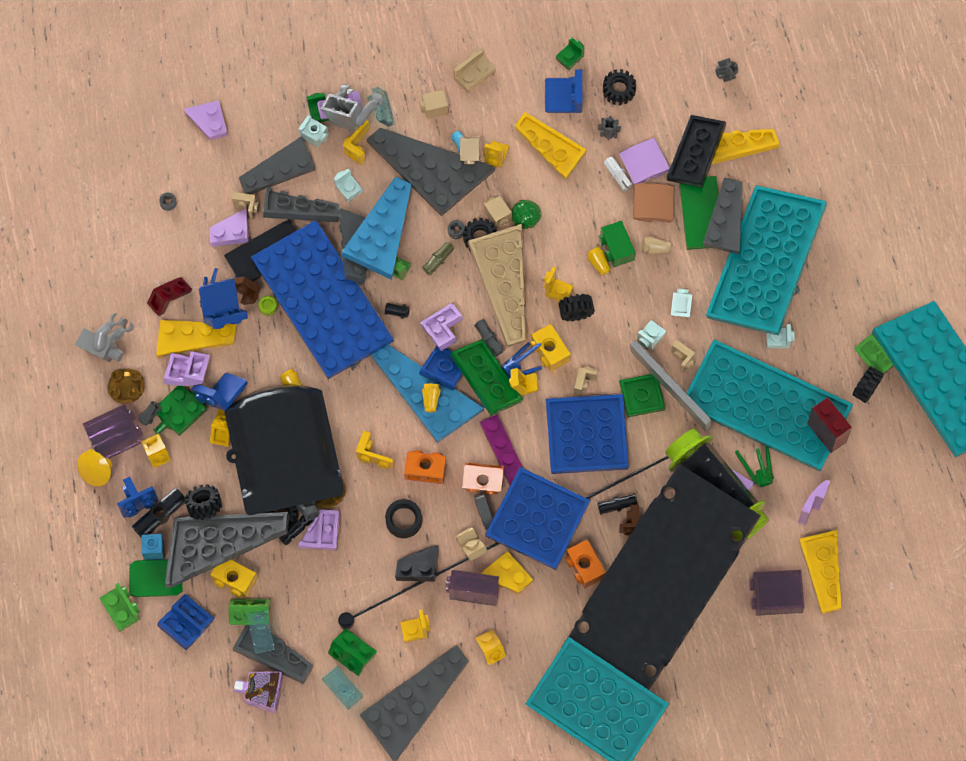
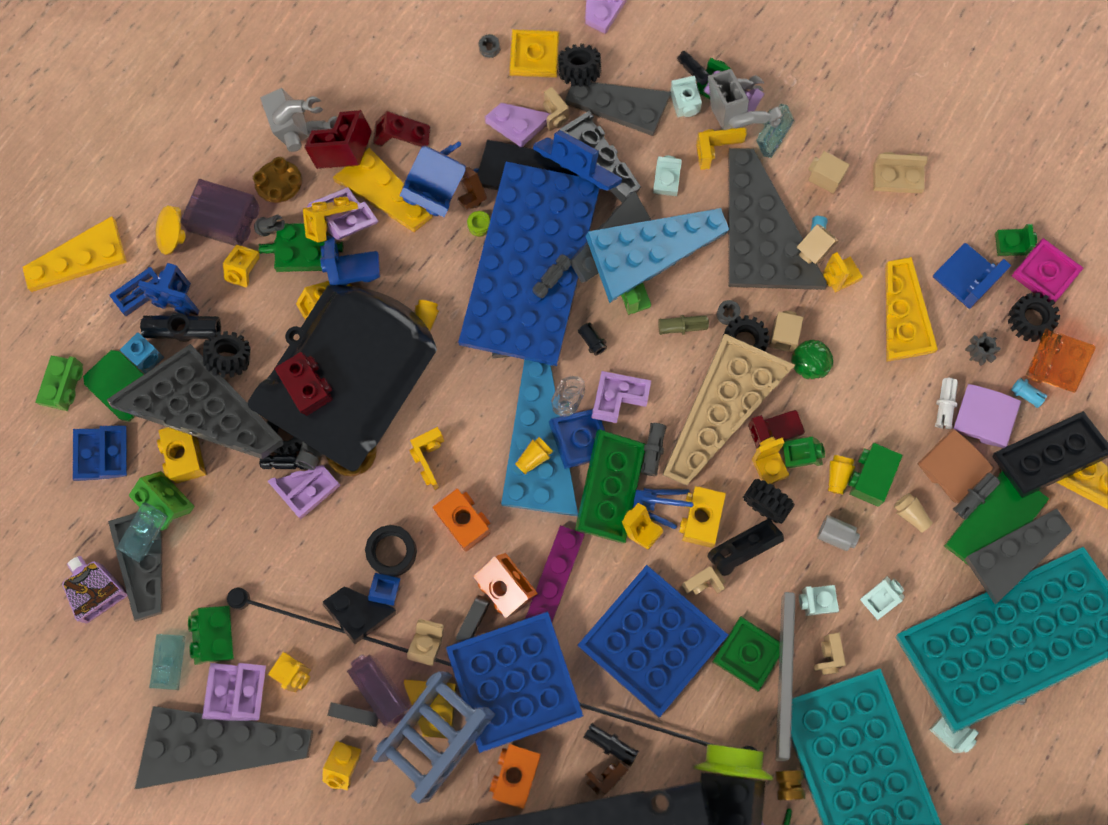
camera: 45 degrees right, 5 degrees up
(53, 532) = (82, 255): none -> yellow wing
(107, 535) = (136, 298): none -> blue tile
(146, 330) = (342, 144): none -> dark red brick
(178, 381) = (314, 216): none -> yellow bracket
(199, 182) = (534, 53): none -> yellow plate
(231, 159) = (579, 65): none -> black tyre
(270, 470) = (304, 383): none -> dark red brick
(290, 218) = (578, 158): none -> blue bracket
(301, 110) = (693, 67): none -> black axle
(344, 294) = (551, 276): none -> dark grey axle
(395, 665) = (234, 692): none -> lavender slope
(416, 350) = (568, 396): none -> clear plate
(420, 540) = (384, 589): none -> blue tile
(470, 616) = (353, 714): none -> dark grey beam
(540, 570) = (459, 741): none -> sand blue fence
(543, 264) = (780, 426): none -> dark red bracket
(569, 267) = (803, 452): none -> green bracket
(587, 342) = (745, 546): none -> black plate
(602, 55) = (1047, 271): none -> dark pink plate
(627, 292) = (838, 533): none -> light grey brick
(652, 130) = (1028, 392): none -> medium azure pin
(654, 98) = (1060, 360): none -> clear orange bracket
(678, 208) = (976, 495): none -> dark grey axle
(725, 437) = (790, 785): none -> pearl gold wheel

